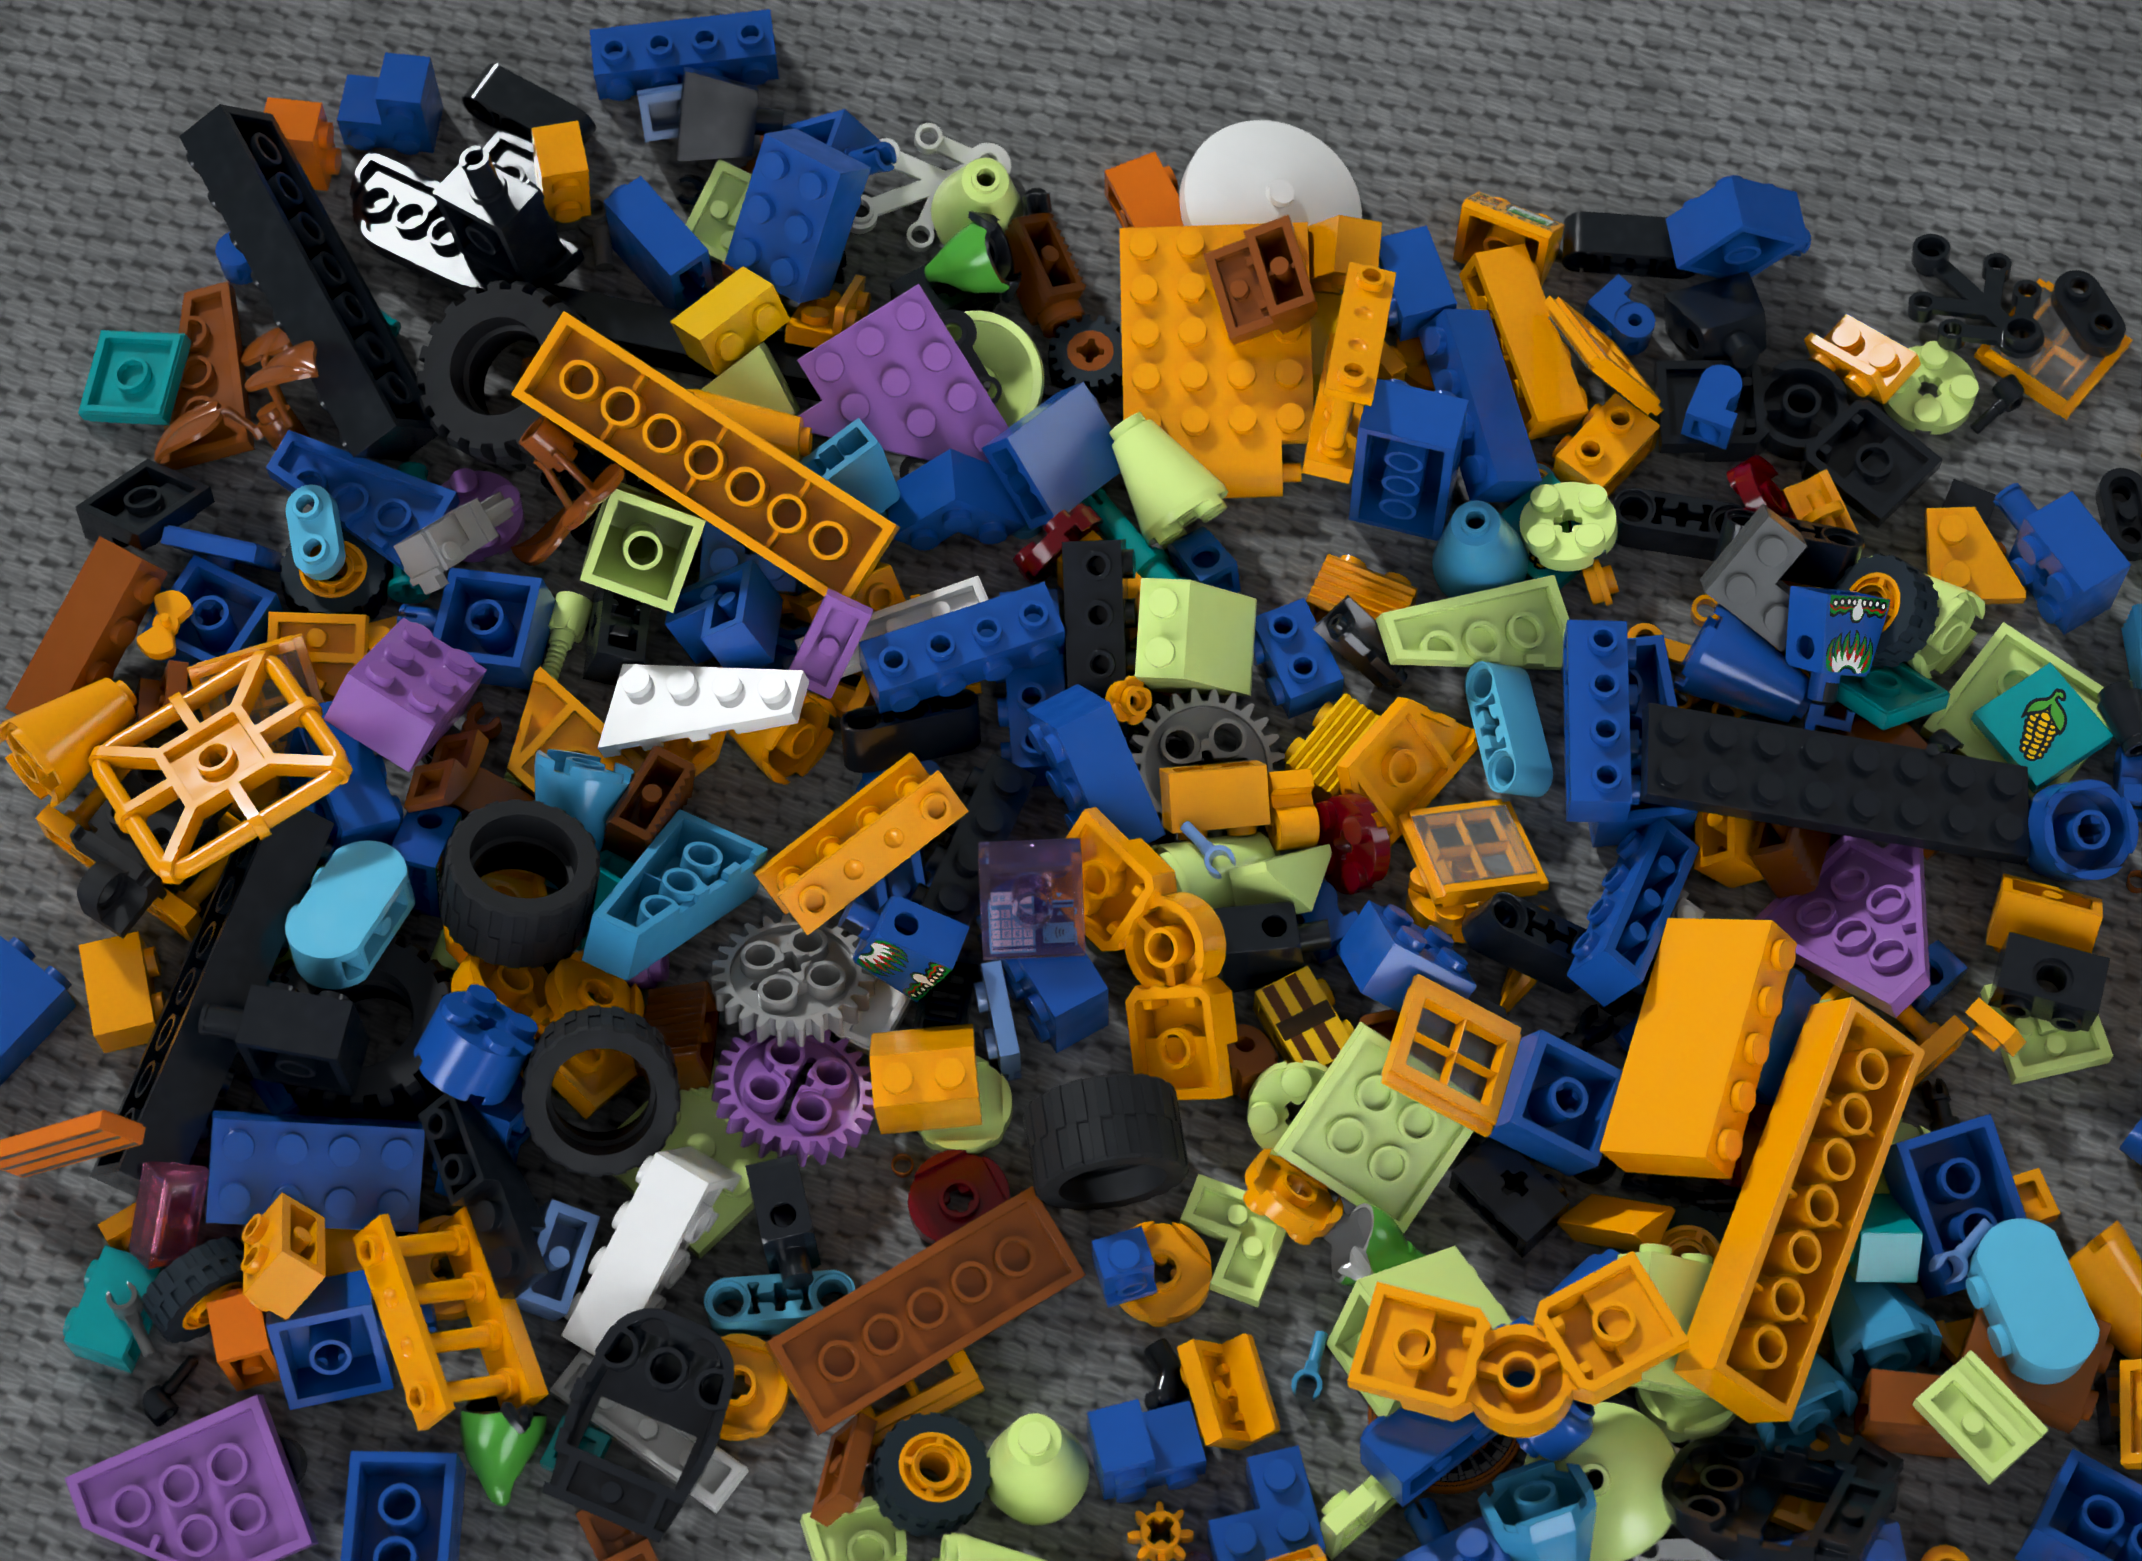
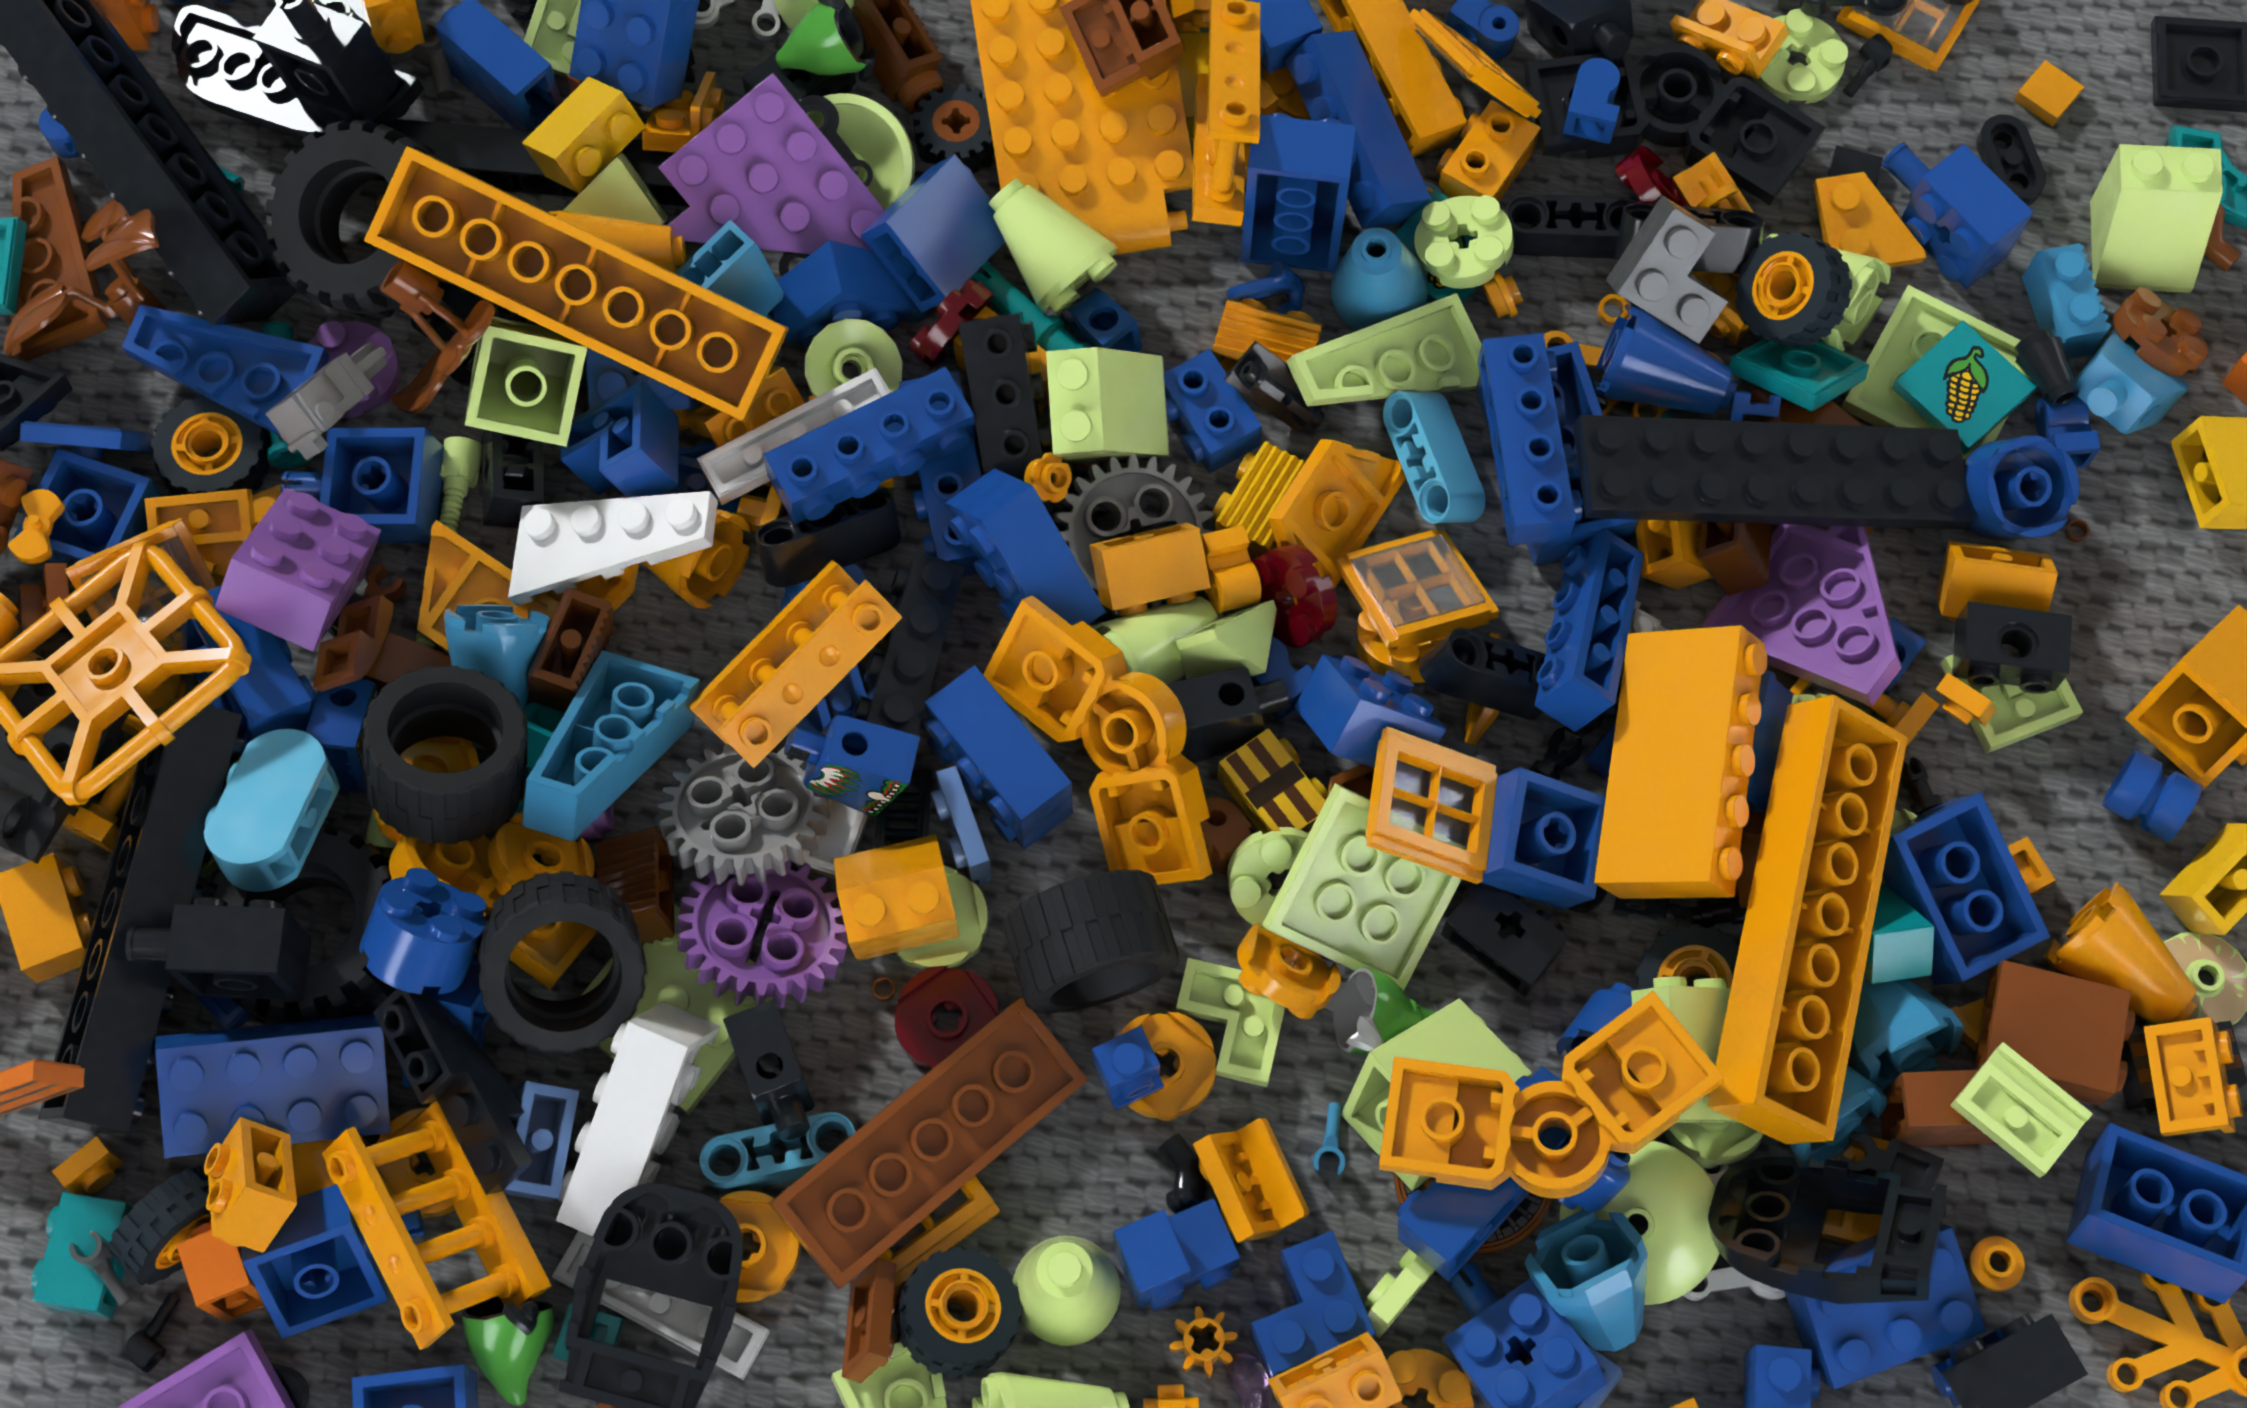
camera: 10 degrees left, 5 degrees up
(167, 1212) = (123, 1151): clear pink slope -> none
(315, 528) = (182, 404): medium azure plate -> none
(831, 641) = (735, 457): medium lavender plate -> none
(957, 549) = (851, 342): none -> yellowish green dish
(1031, 898) = (980, 700): clear purple slope -> none
(1207, 848) = (1150, 622): medium blue hand -> none
(1383, 543) = (1278, 281): none -> blue piece
(1616, 1222) = (1619, 951): light orange slope -> none
(1833, 636) = (1750, 322): blue torso -> none
(1942, 742) = (1870, 415): black hand -> none
(1961, 1253) = (1972, 941): medium blue hand -> none
(2031, 1302) = (2052, 981): medium azure brick -> none

